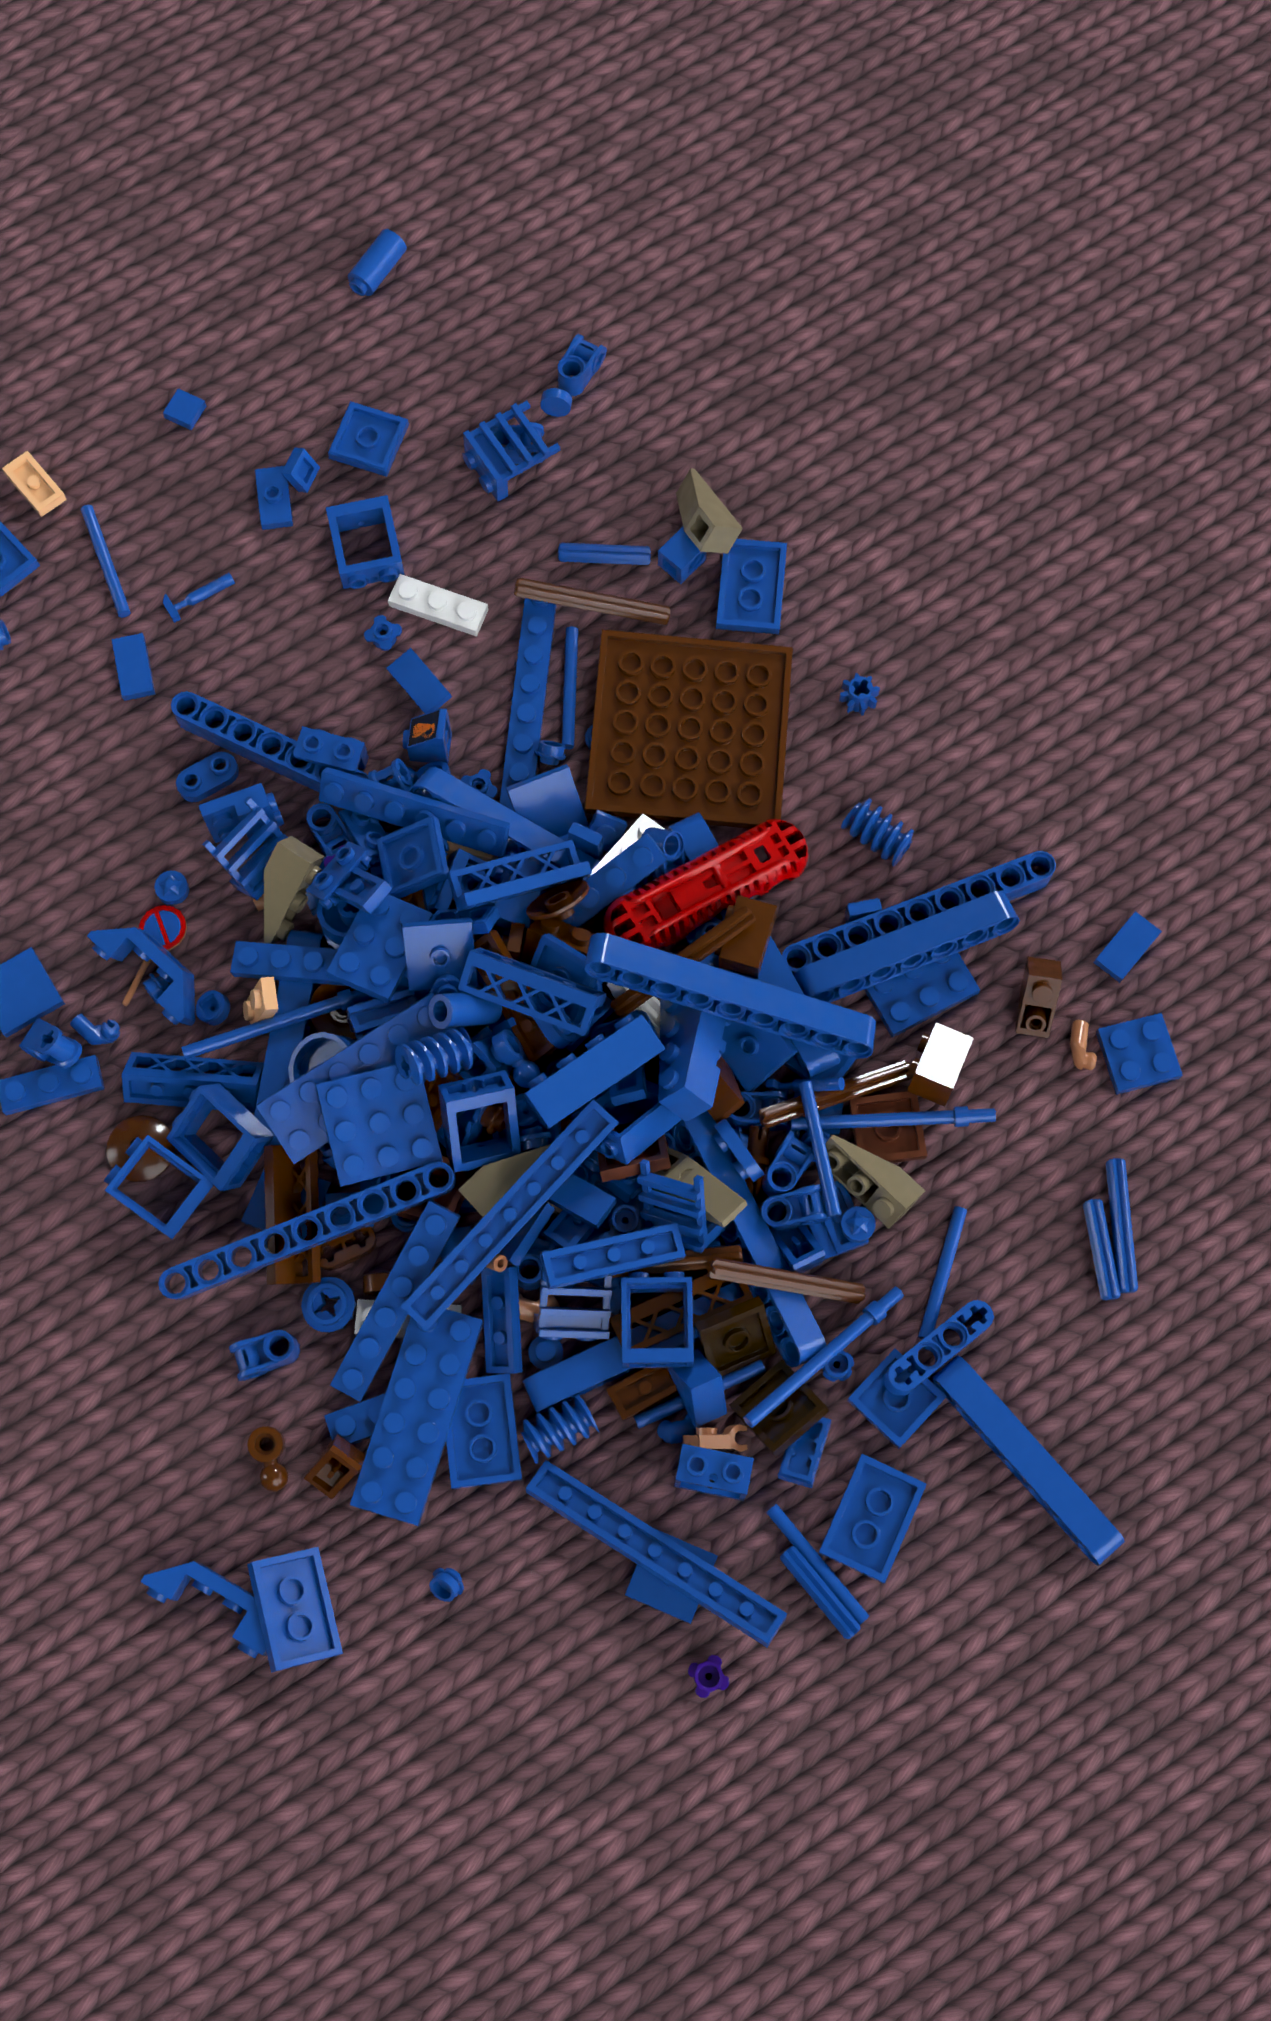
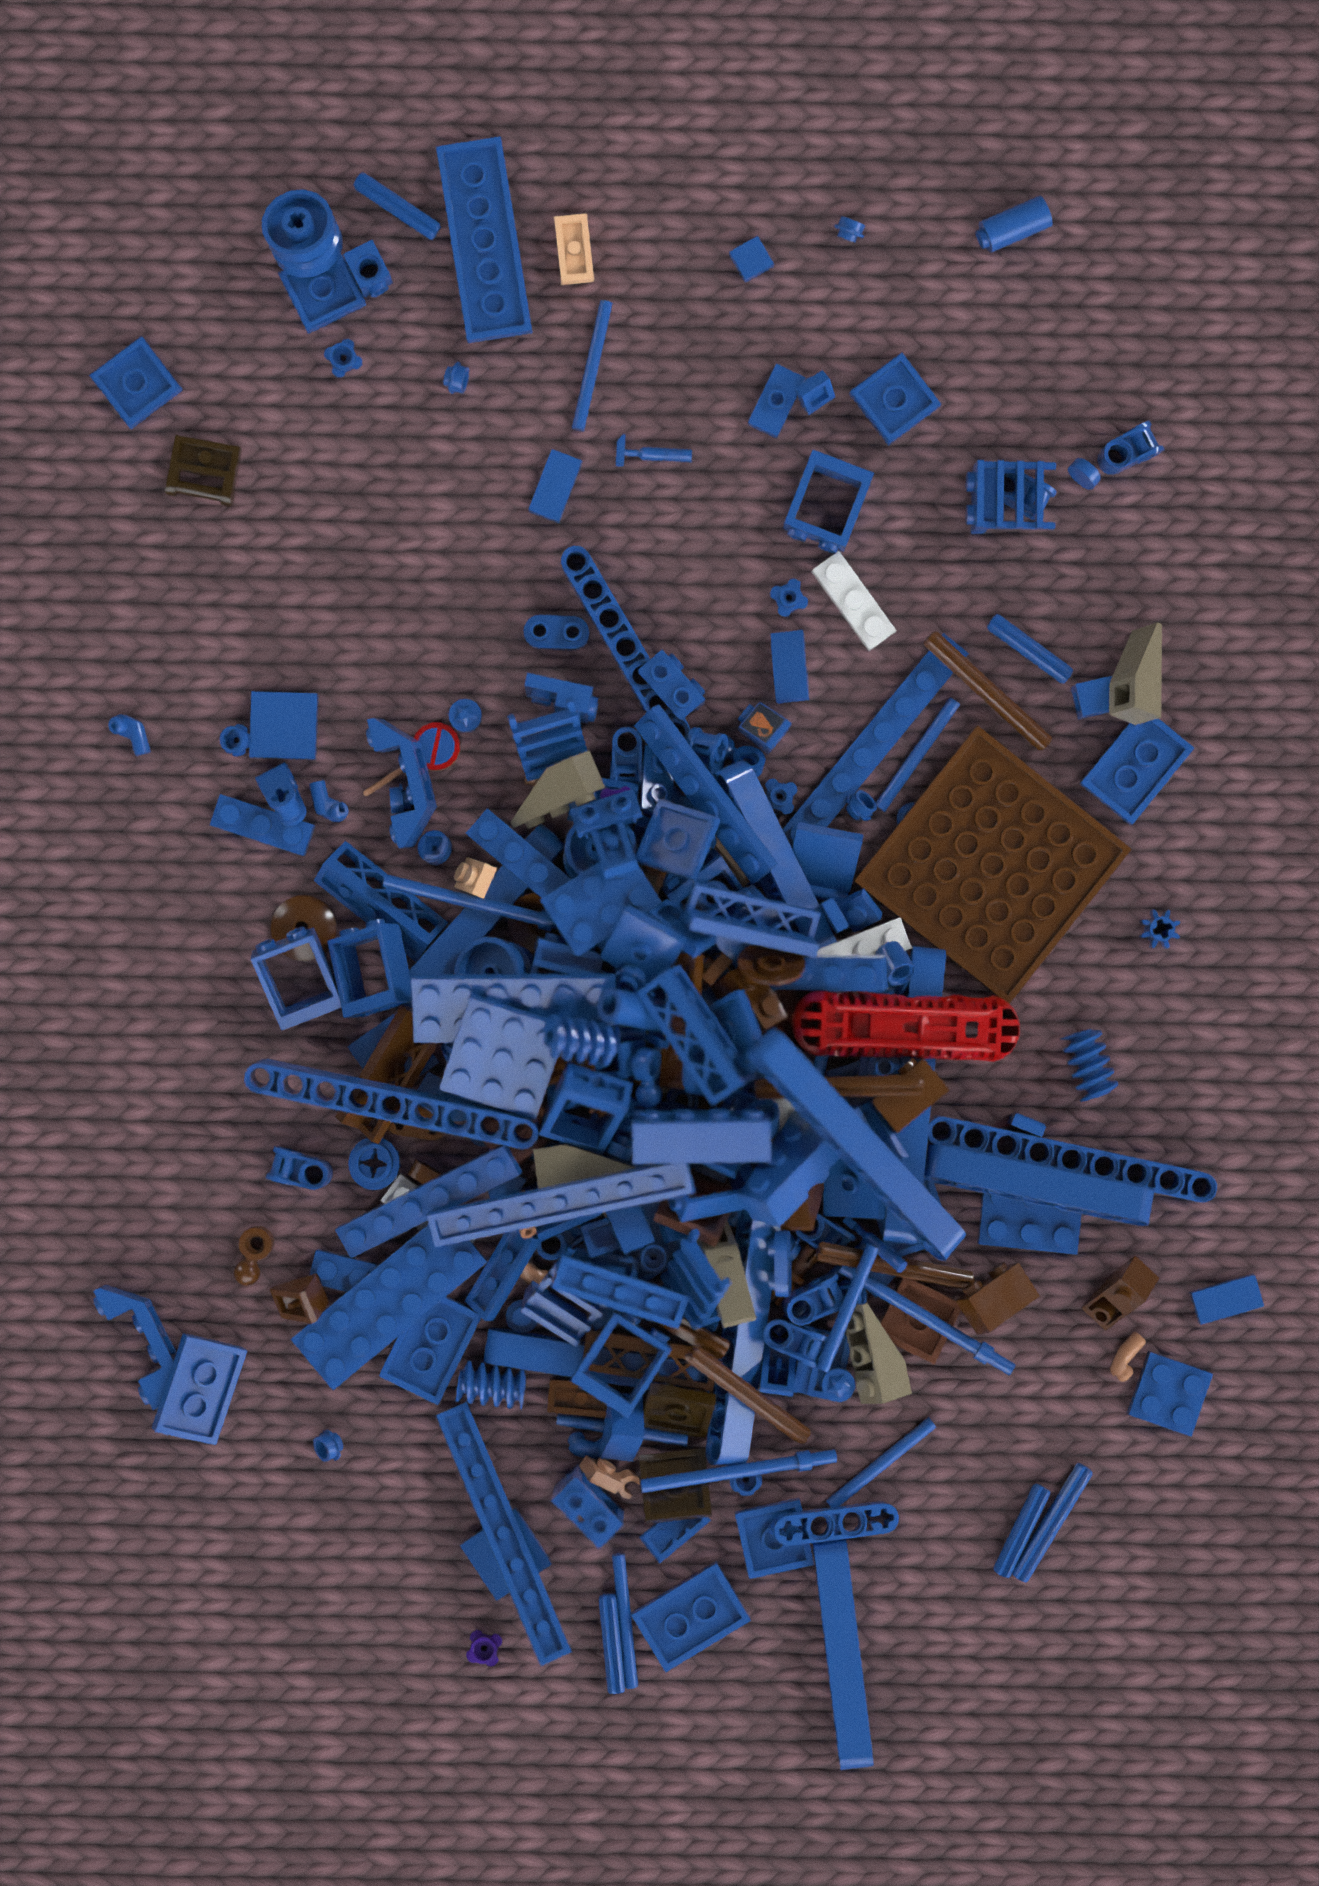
camera: 30 degrees right, 15 degrees up
(249, 341) = (849, 229): none -> blue plate

